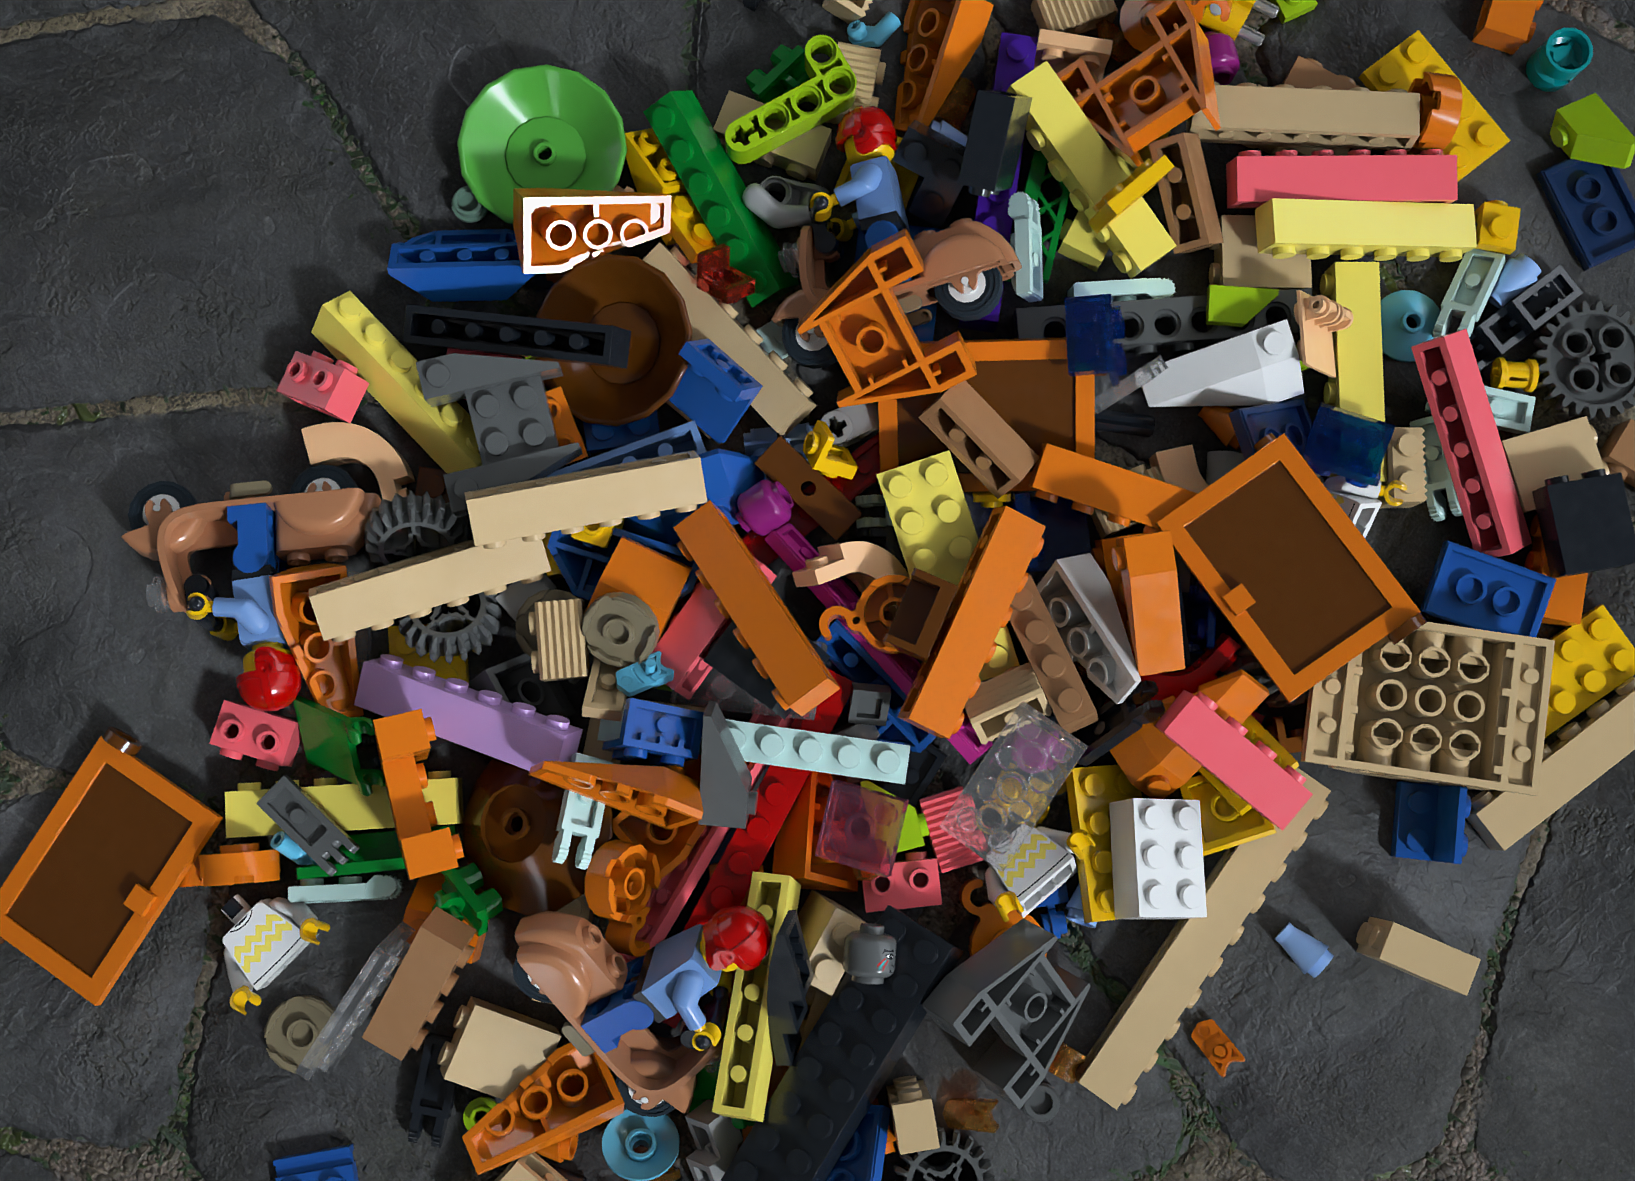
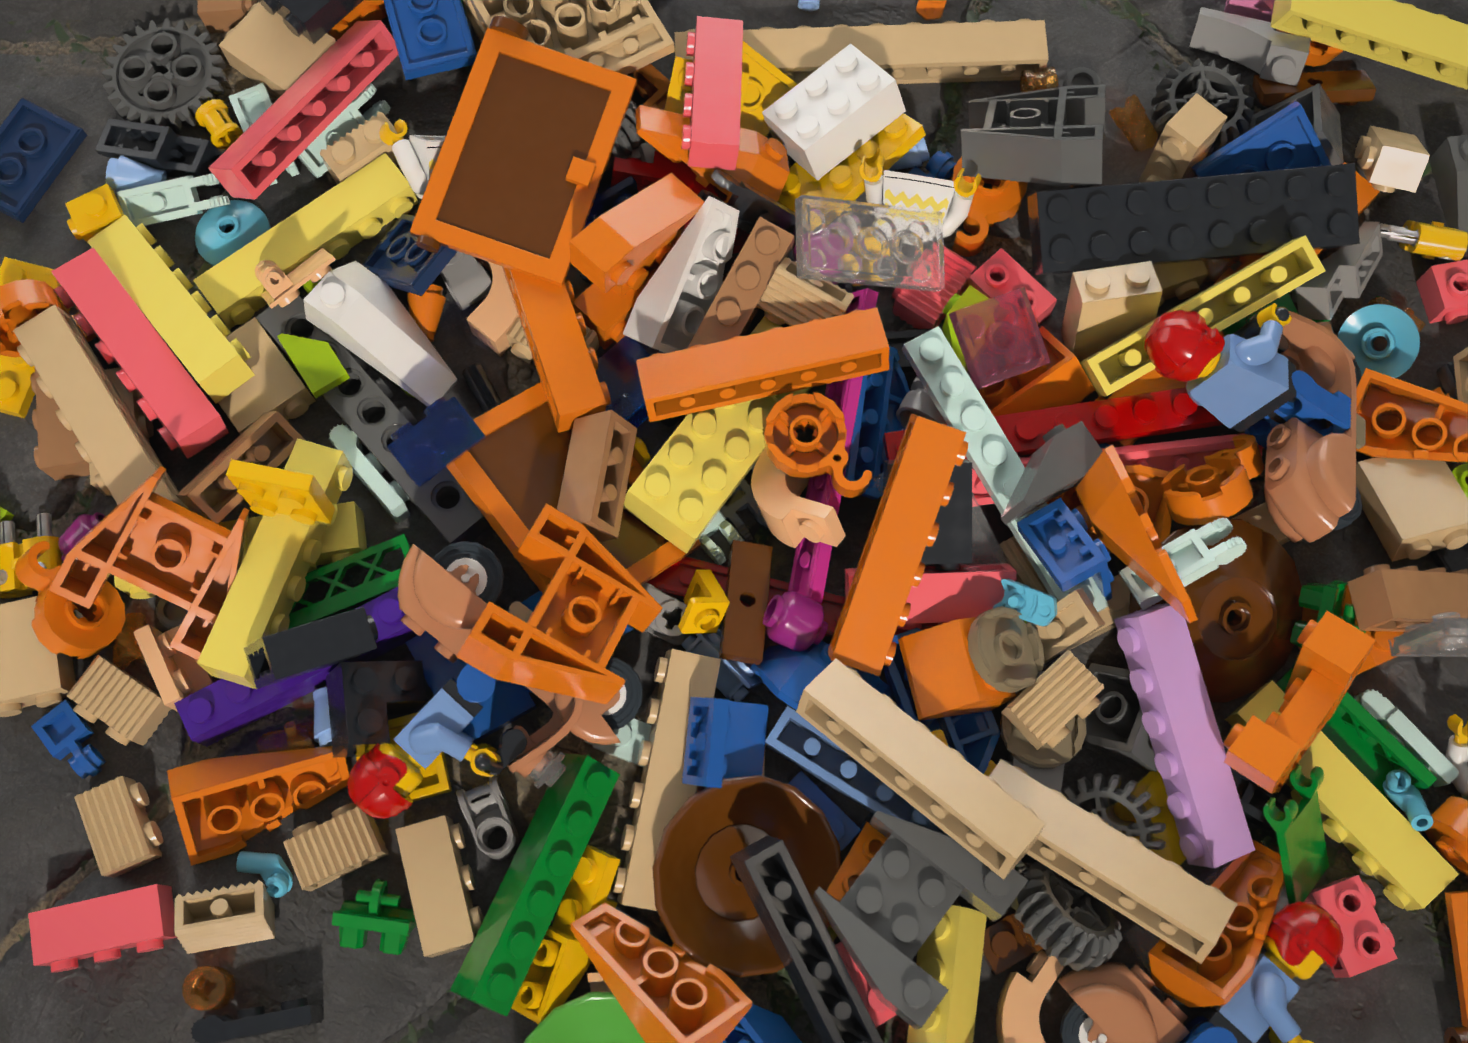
camera: 120 degrees left, 10 degrees down
(307, 824) = (1388, 805): dark grey hinge -> none
(719, 278) = (616, 813): clear red bracket -> none
(772, 211) = (515, 818): light grey arm -> none
(786, 108) = (406, 878): lime beam -> none
(787, 986) = (1178, 286): black slope -> none
(869, 704) = (891, 408): dark grey plate -> none
(869, 954) = (1099, 246): dark grey head -> none
(920, 615) = (794, 400): reddish brown panel -> none
(1027, 246) = (385, 569): light aqua hinge -> none
(1130, 384) = (435, 387): clear tile -> none
(1347, 445) = (381, 191): clear blue bracket -> none

